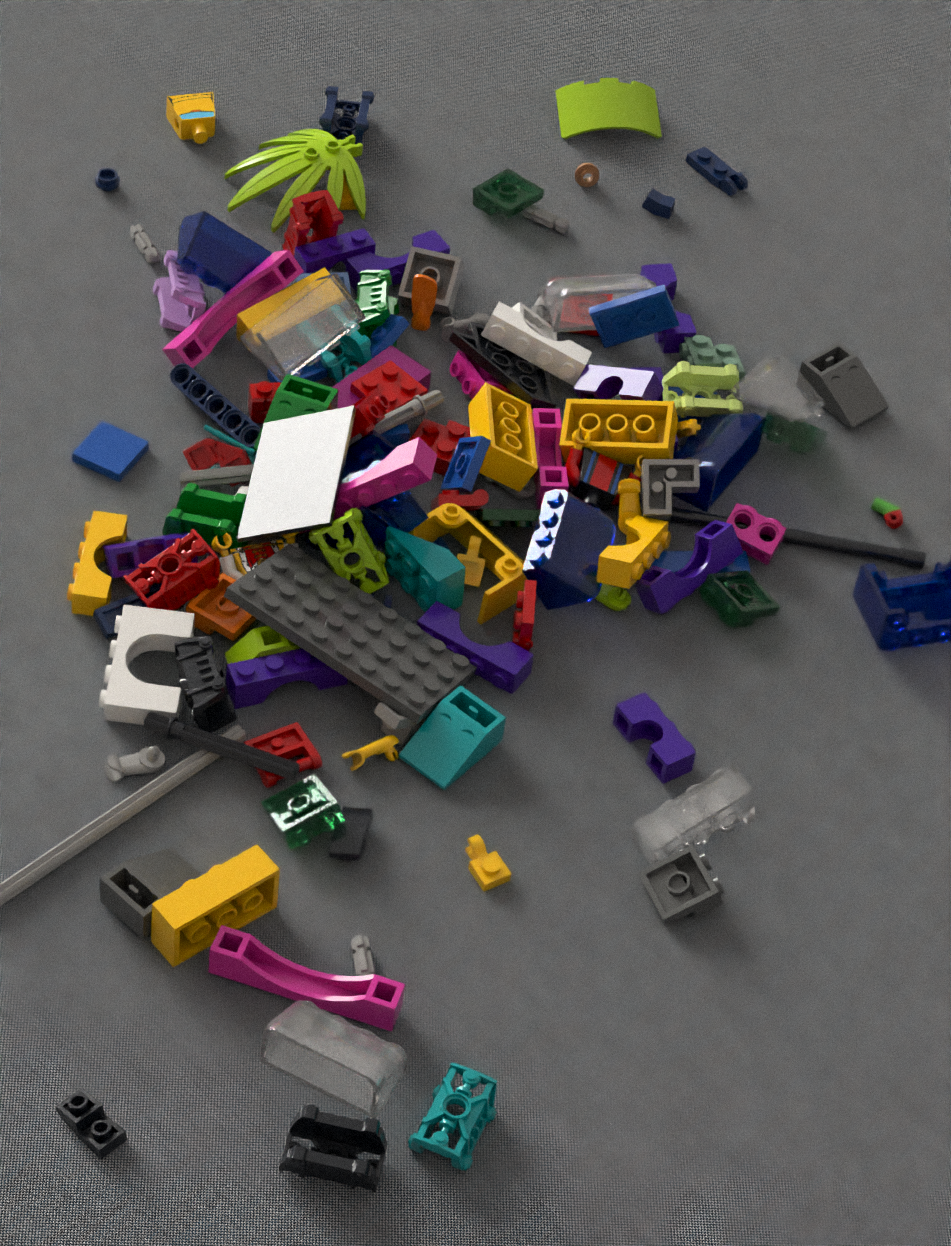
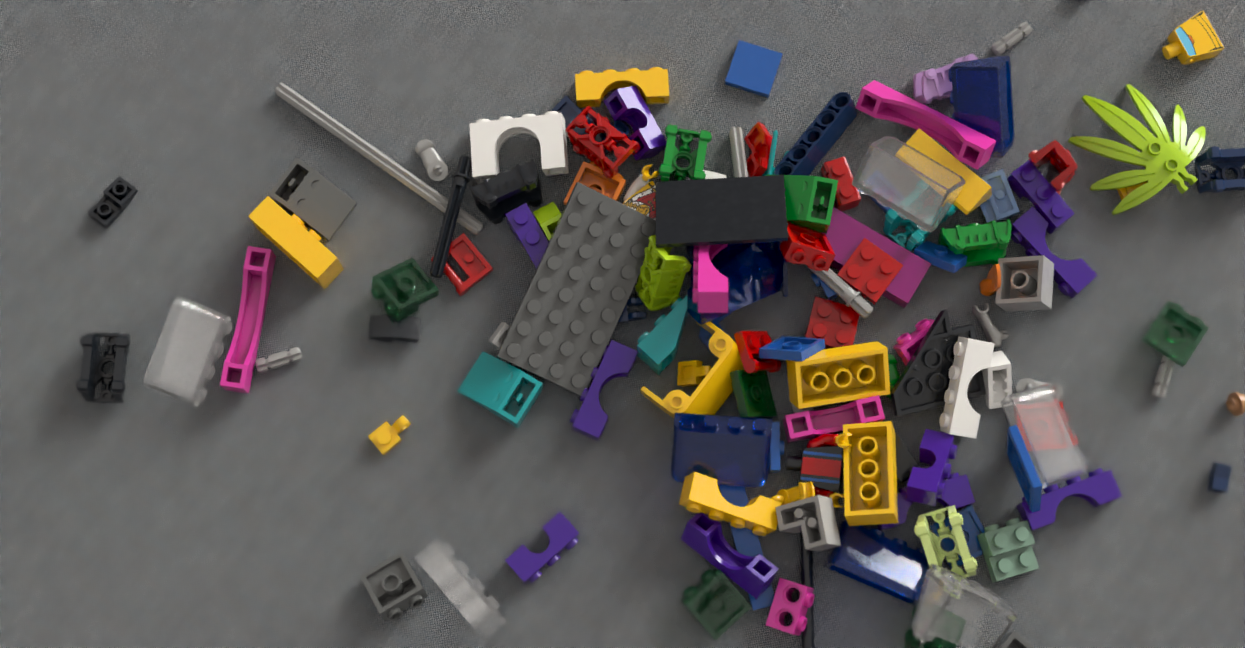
camera: 85 degrees right, 30 degrees up
(381, 745) = (479, 327): yellow piece -> none
(470, 1124) = (146, 457): teal piece -> none
(524, 619) = (625, 426): red plate -> none
(687, 428) = (902, 533): yellow axle -> none

